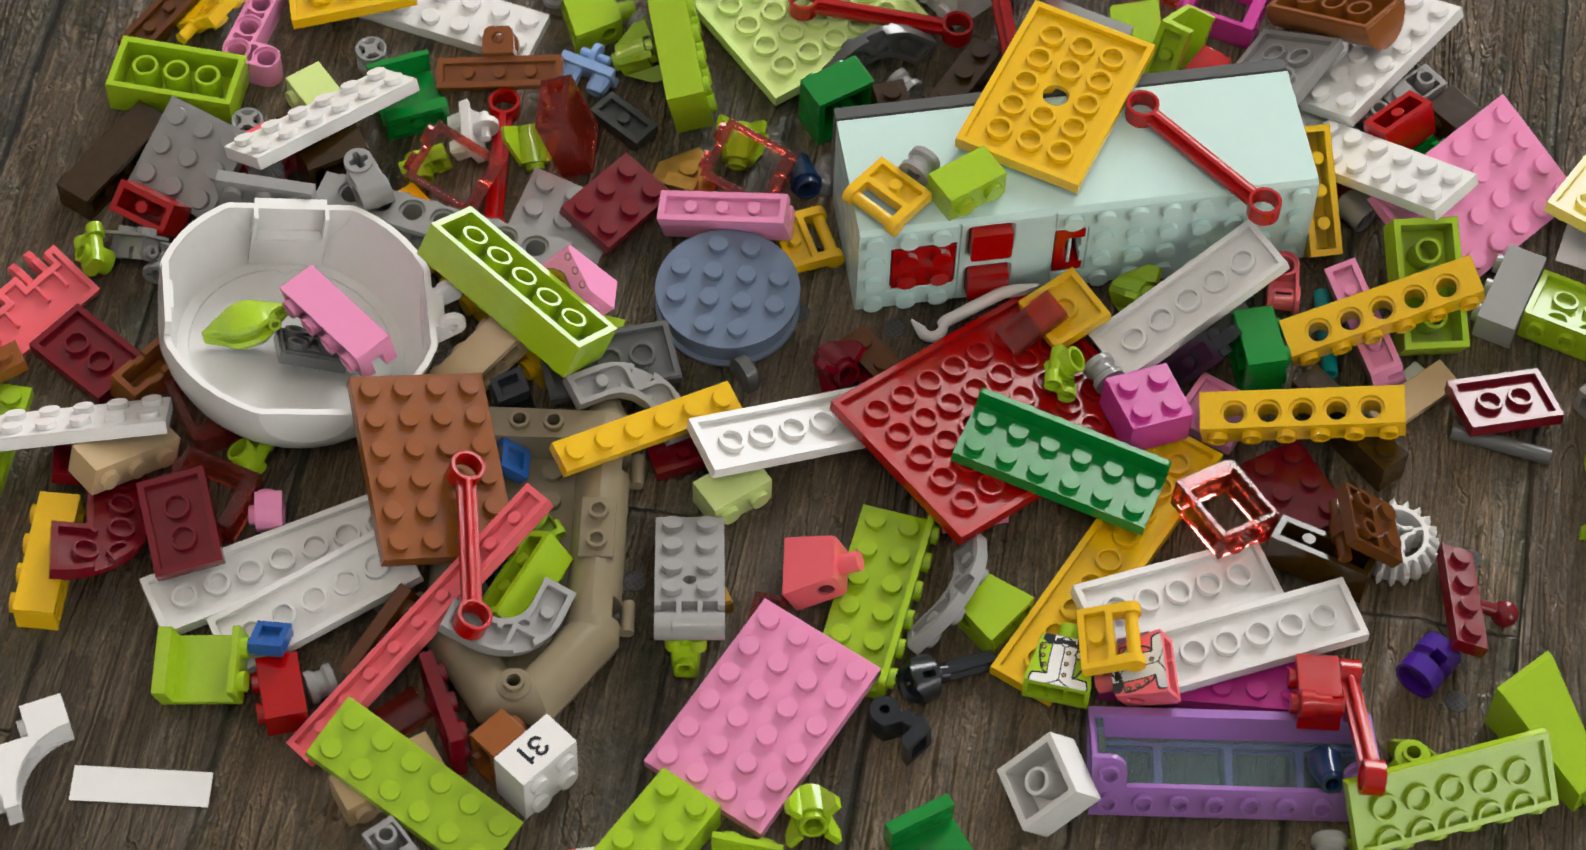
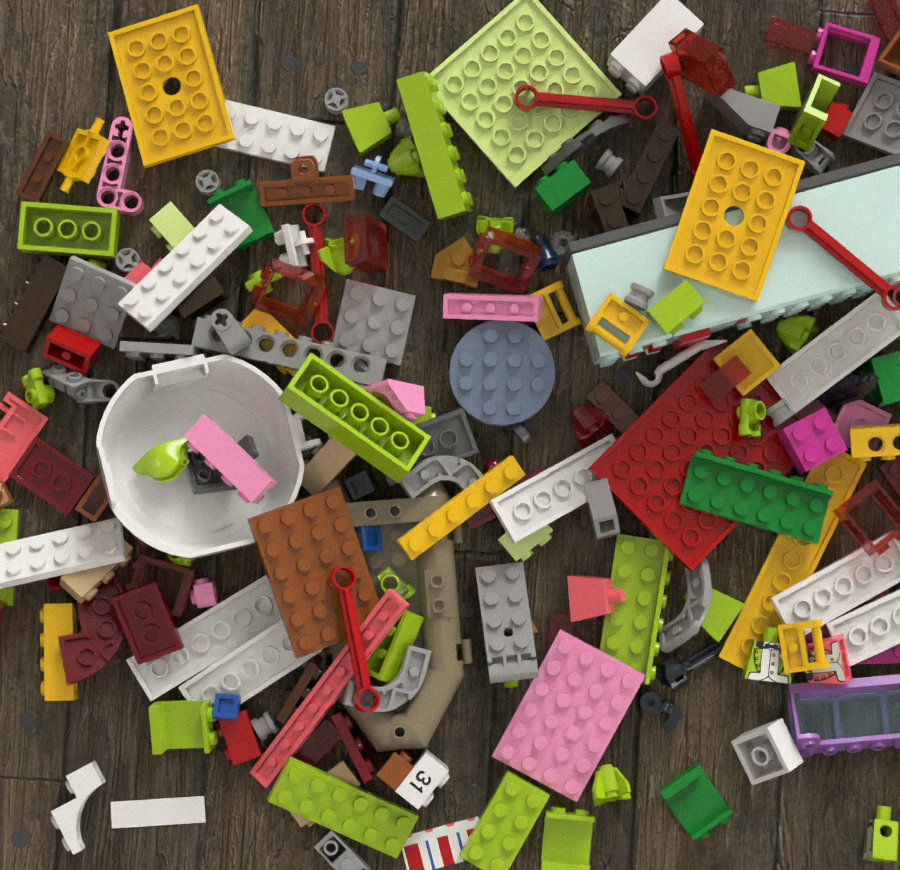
camera: 10 degrees left, 30 degrees up
(614, 203) = (410, 302): dark red plate -> none
(843, 460) = (601, 509): none -> light grey slope

